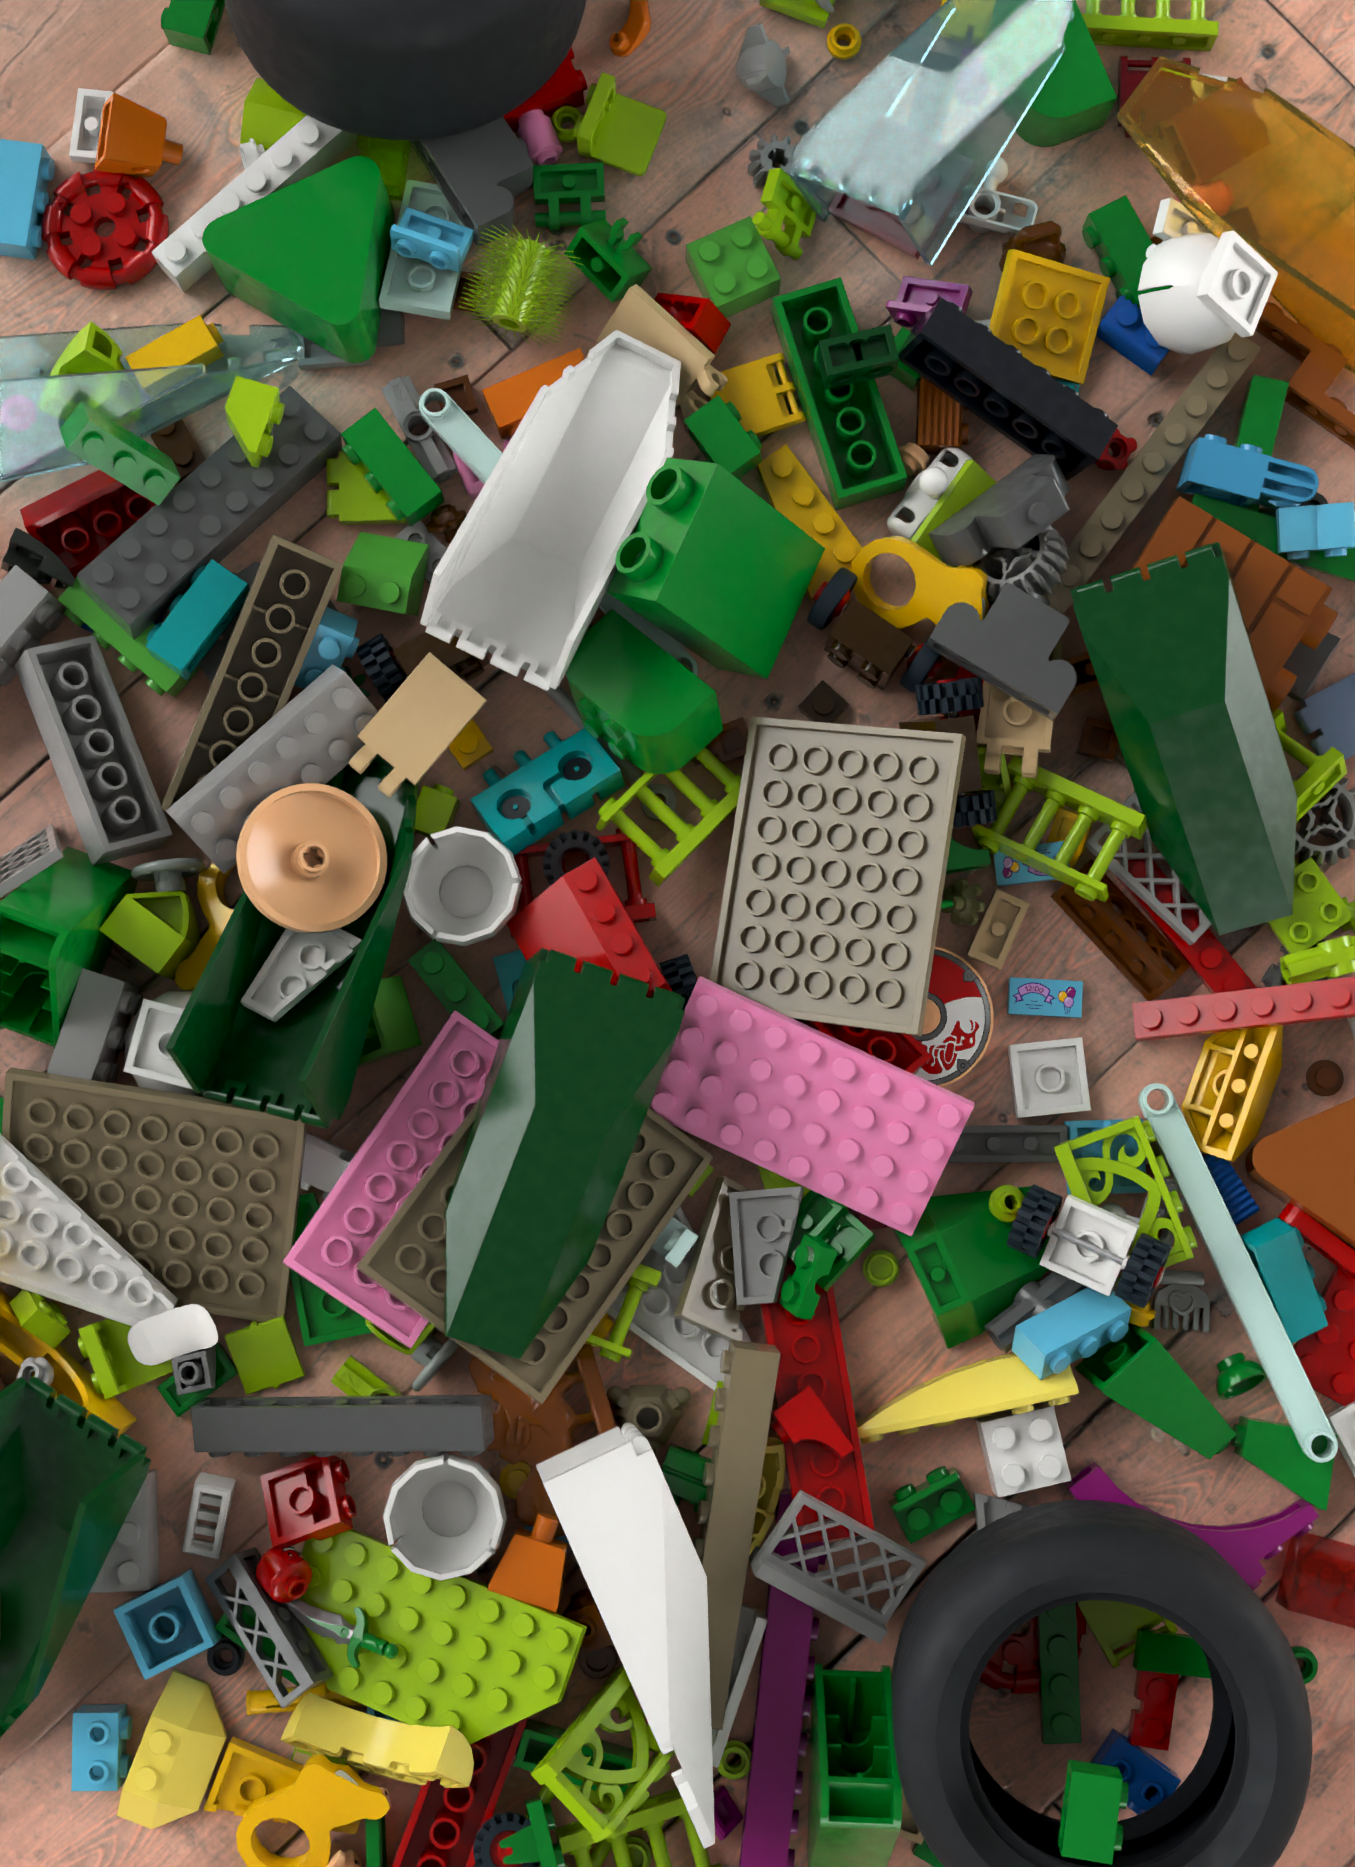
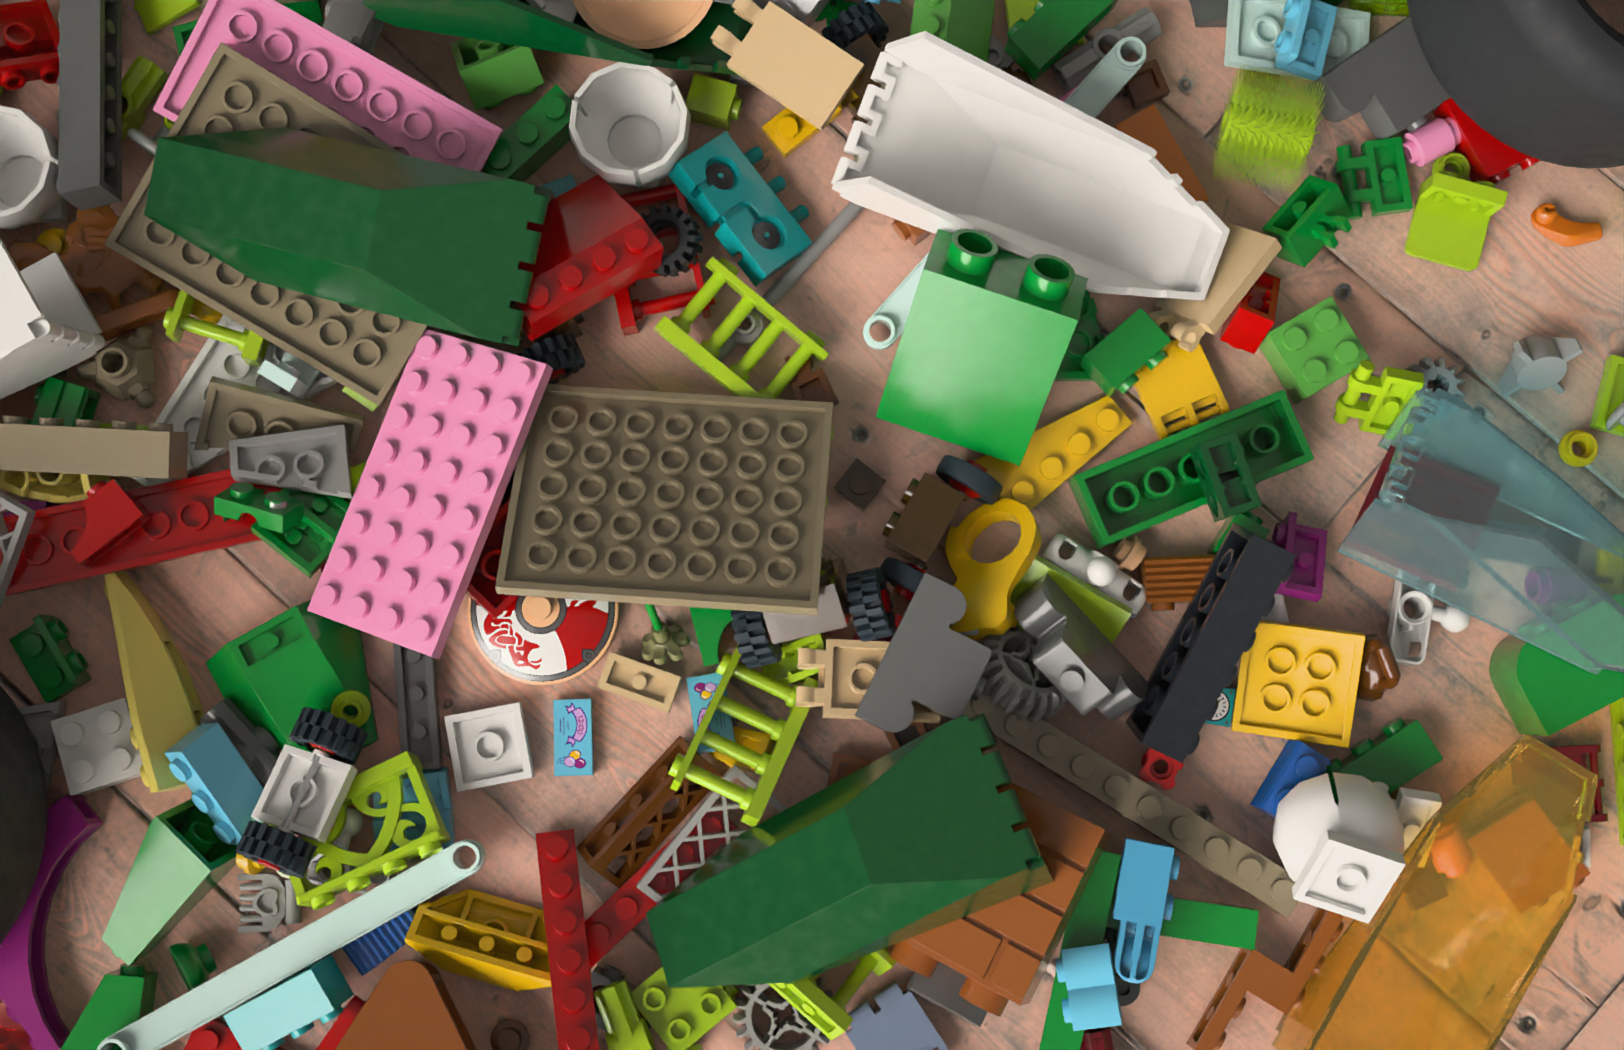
camera: 85 degrees right, 0 degrees up
(641, 697) = (840, 284): green brick -> none
(880, 1268) = (284, 589): lime plate -> none

